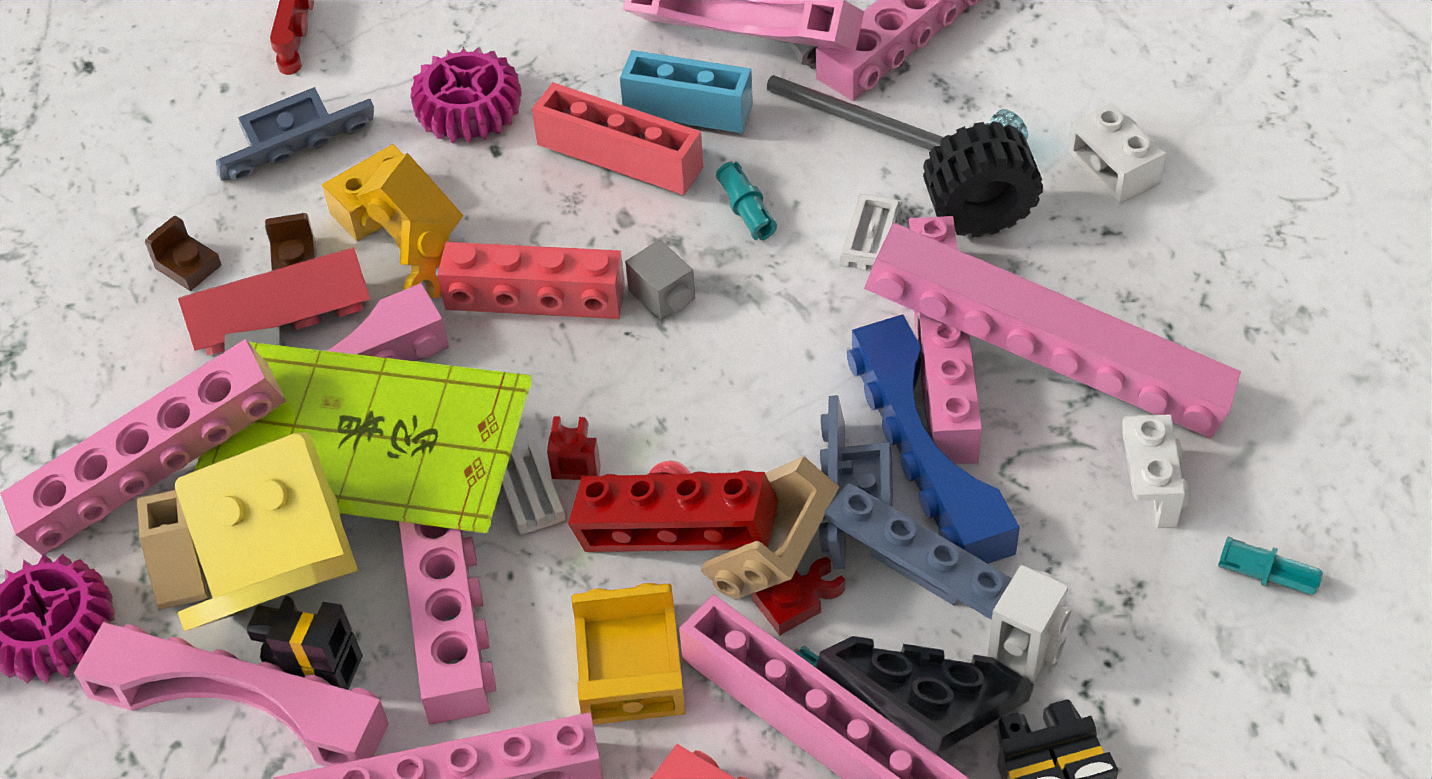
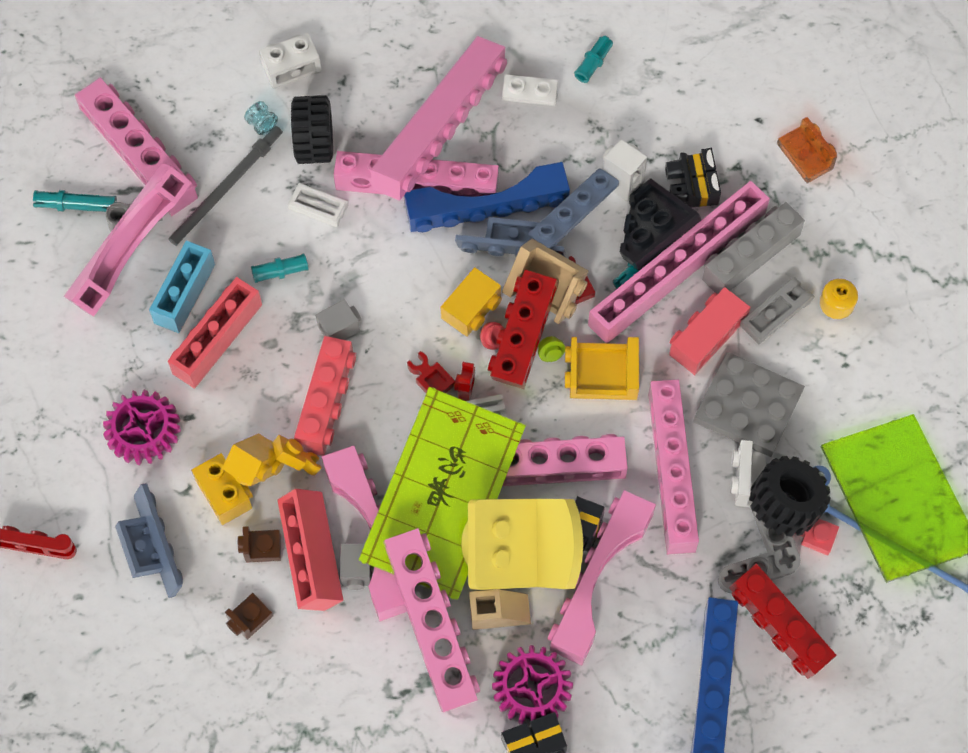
camera: 85 degrees left, 15 degrees up
(591, 405) = (431, 376): none -> red plate
(654, 566) = (551, 349): none -> lime plate
(719, 435) = (471, 302): none -> yellow brick

